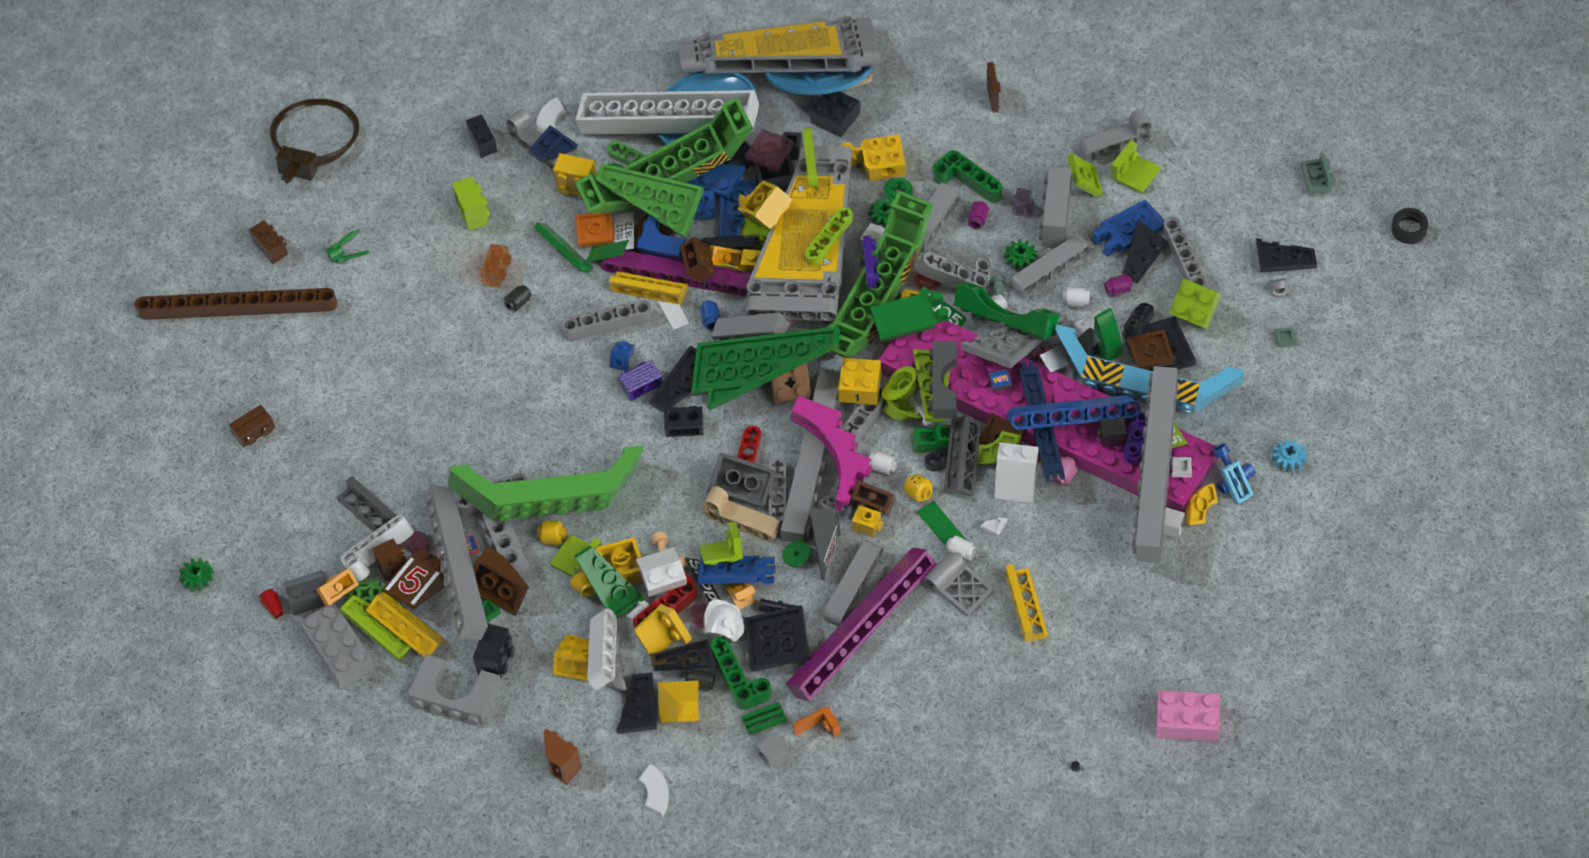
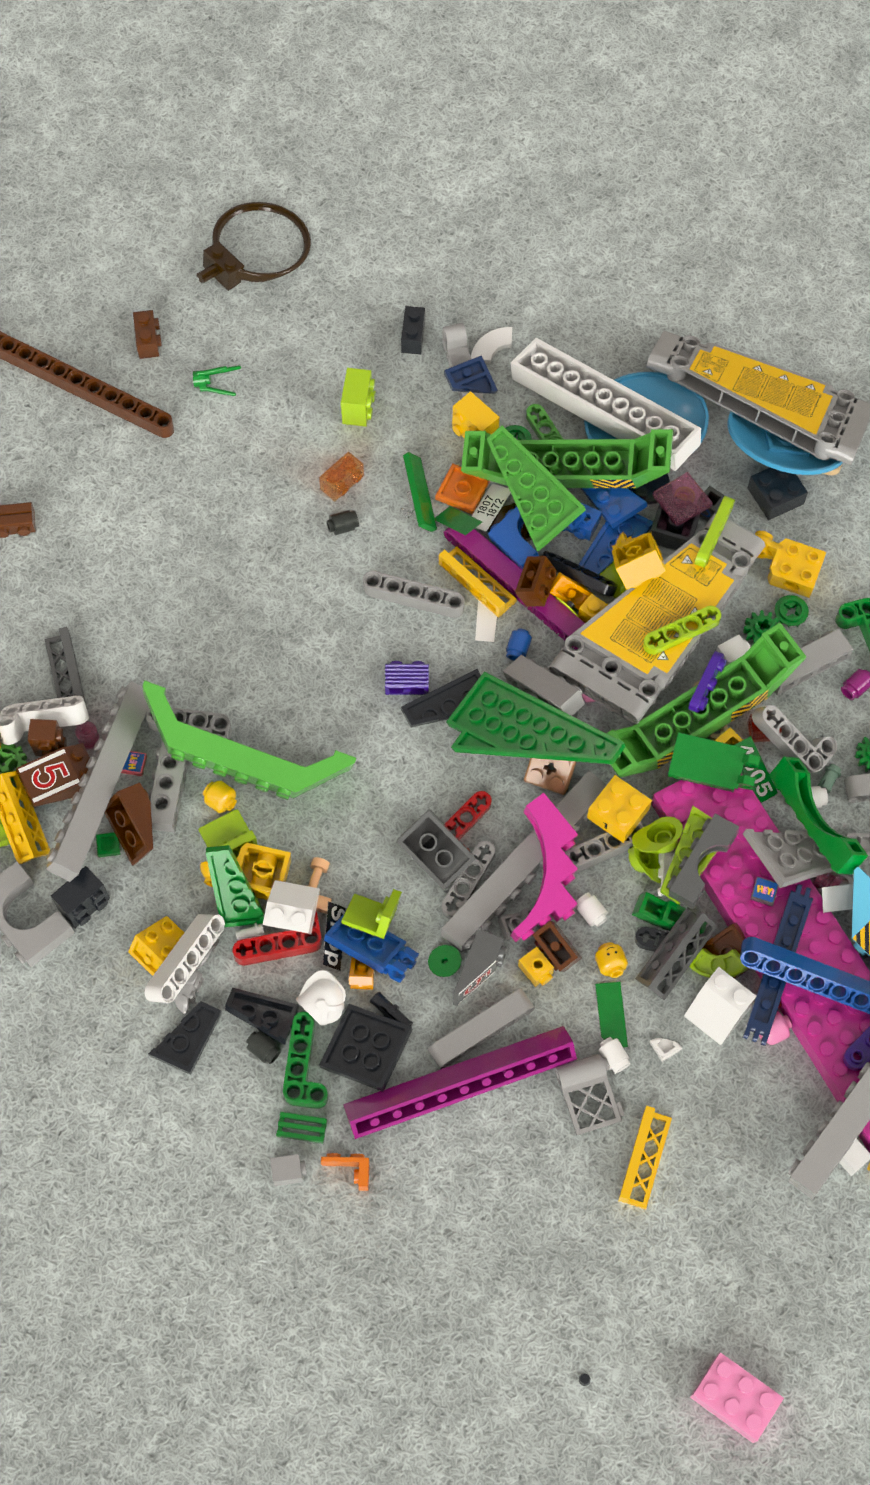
camera: 25 degrees right, 10 degrees up
(561, 757) = (71, 1054): dark orange slope -> none
(620, 355) = (405, 639): blue bracket -> none
(657, 790) = (148, 1144): white tile -> none
(661, 629) = (254, 970): yellow bracket -> none
(678, 701) = (226, 1061): yellow slope -> none
(684, 425) = (418, 752): black brick -> none
(697, 614) = (304, 971): clear pink wheel -> none
(747, 520) = (413, 889): tan beam -> none
(1112, 432) = (847, 1021): pearl dark grey brick -> none

